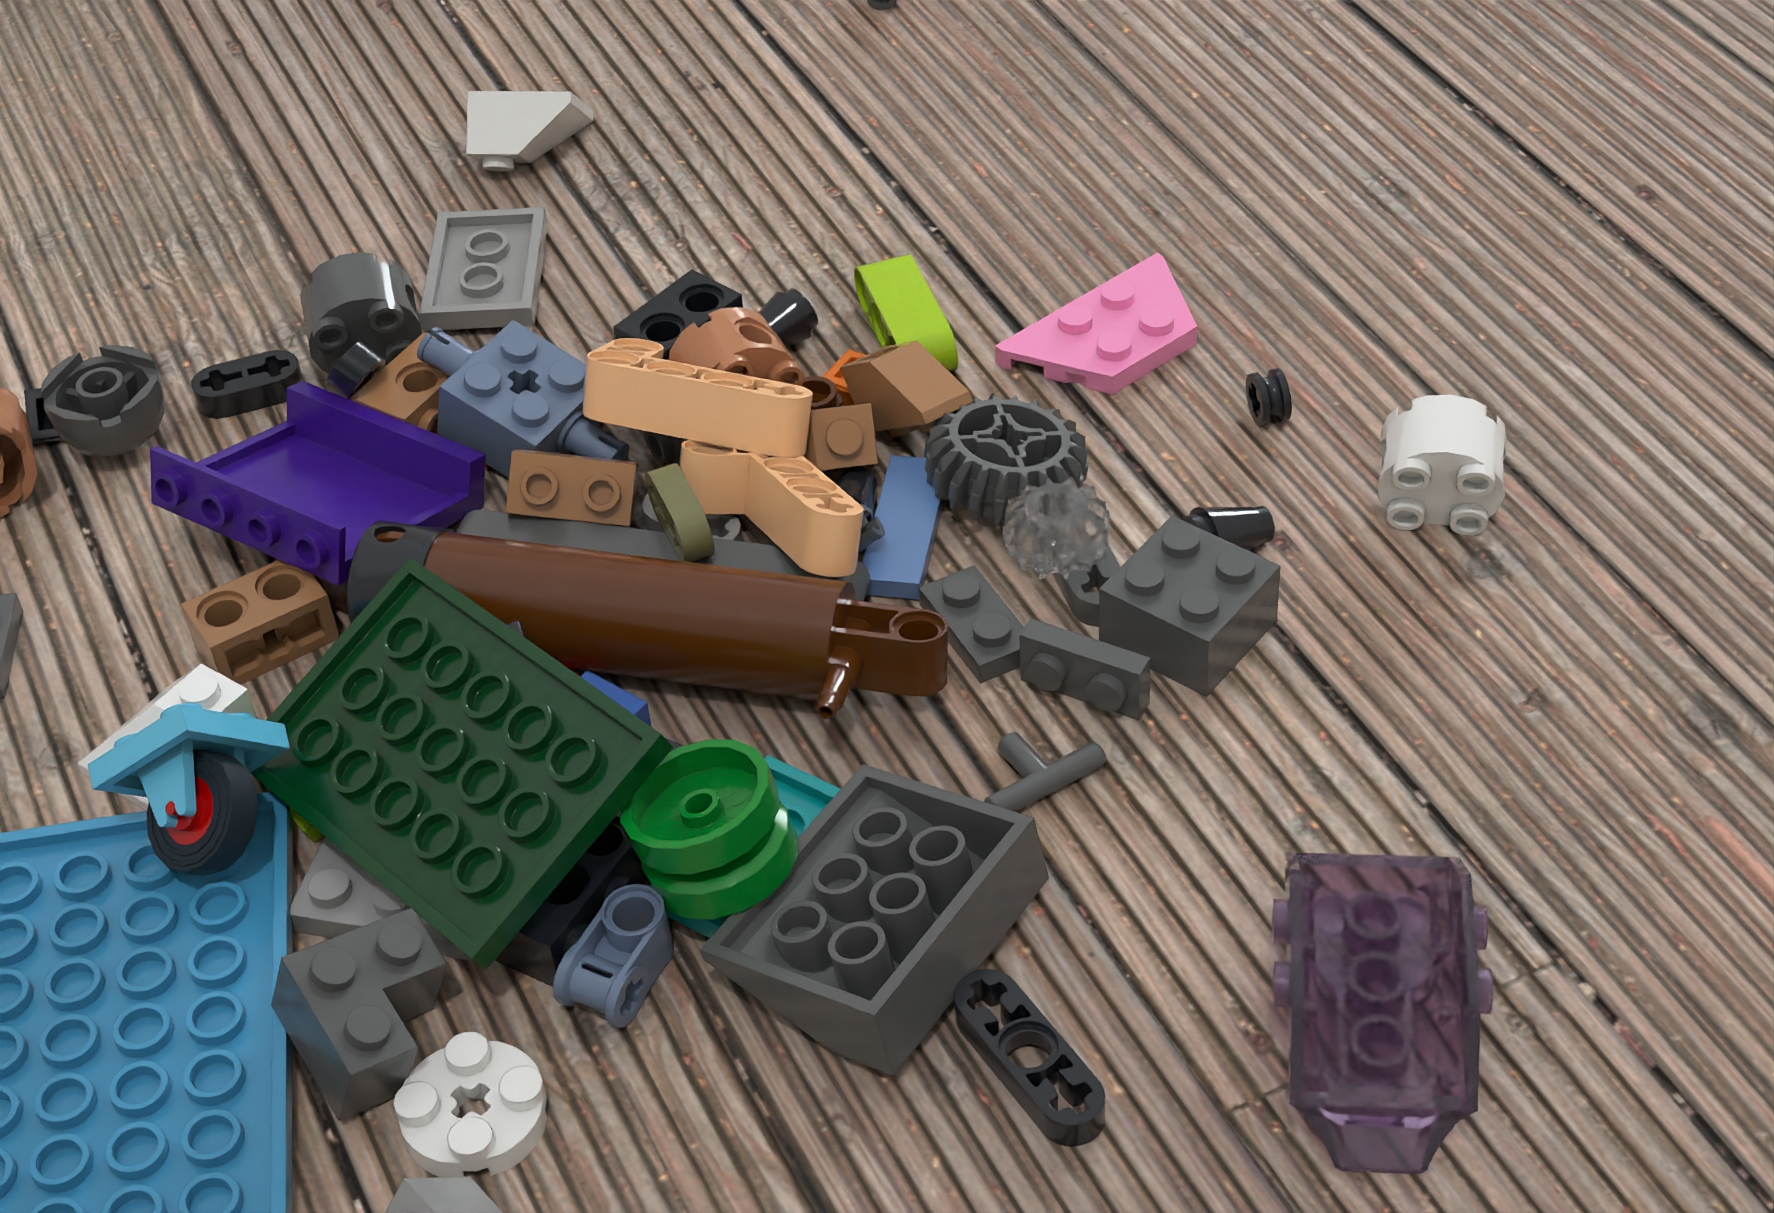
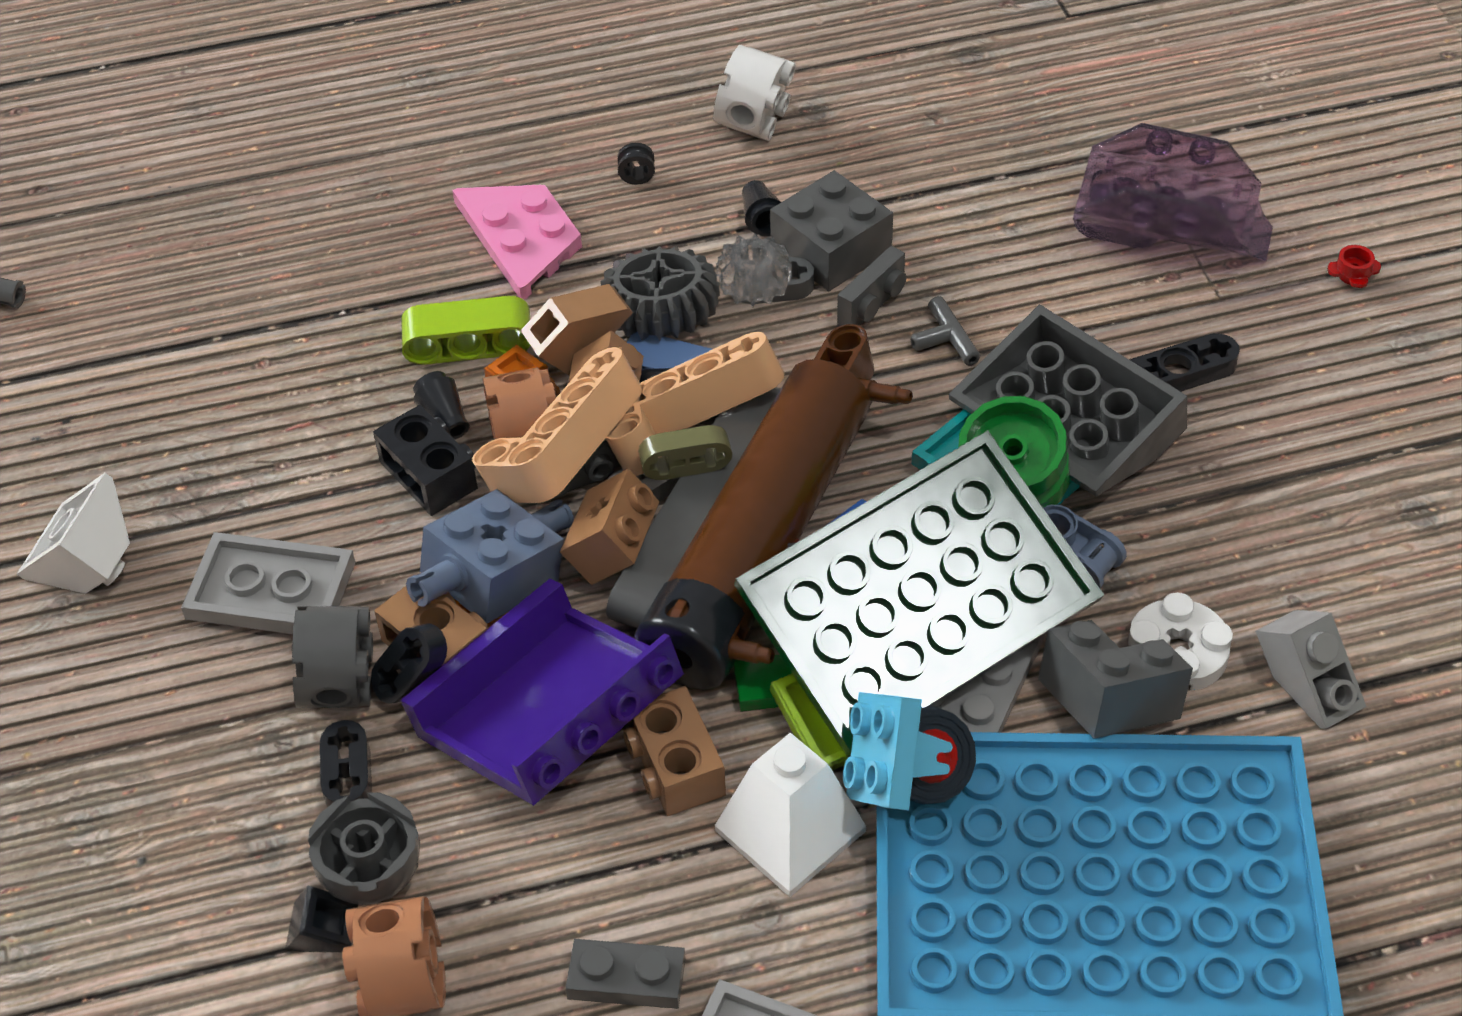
camera: 80 degrees left, 5 degrees up
(978, 622) = (800, 338): dark grey plate -> none

